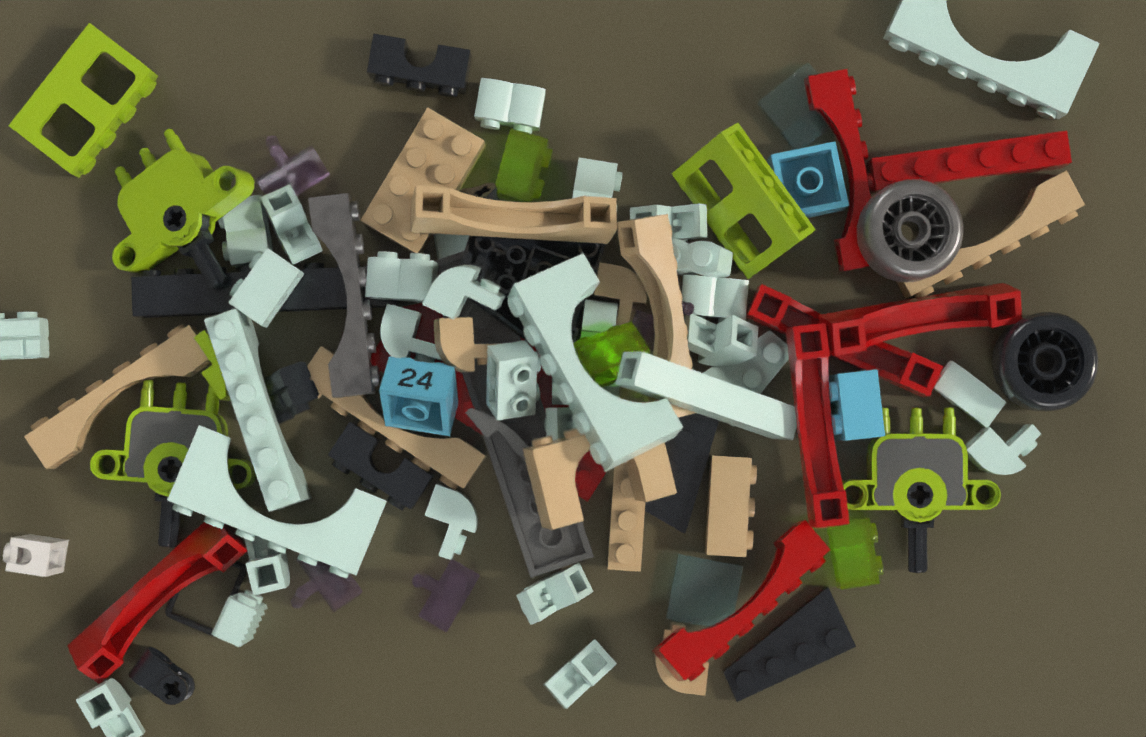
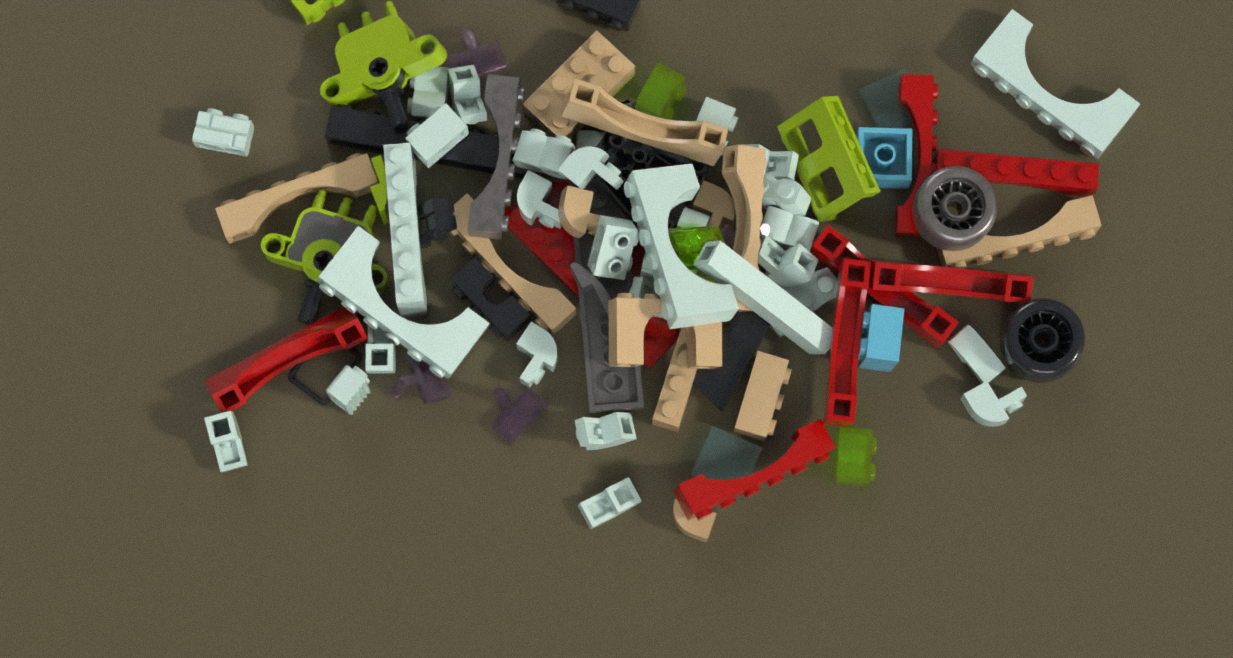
camera: 15 degrees right, 10 degrees down
(35, 555) = (200, 301): white brick -> none
(158, 673) = (271, 422): black piece -> none
(419, 395) = (536, 246): medium azure brick -> none
(509, 105) = (661, 45): light aqua brick -> none
(801, 642) = (794, 521): black wing -> none
(921, 461) = (924, 396): piece -> none

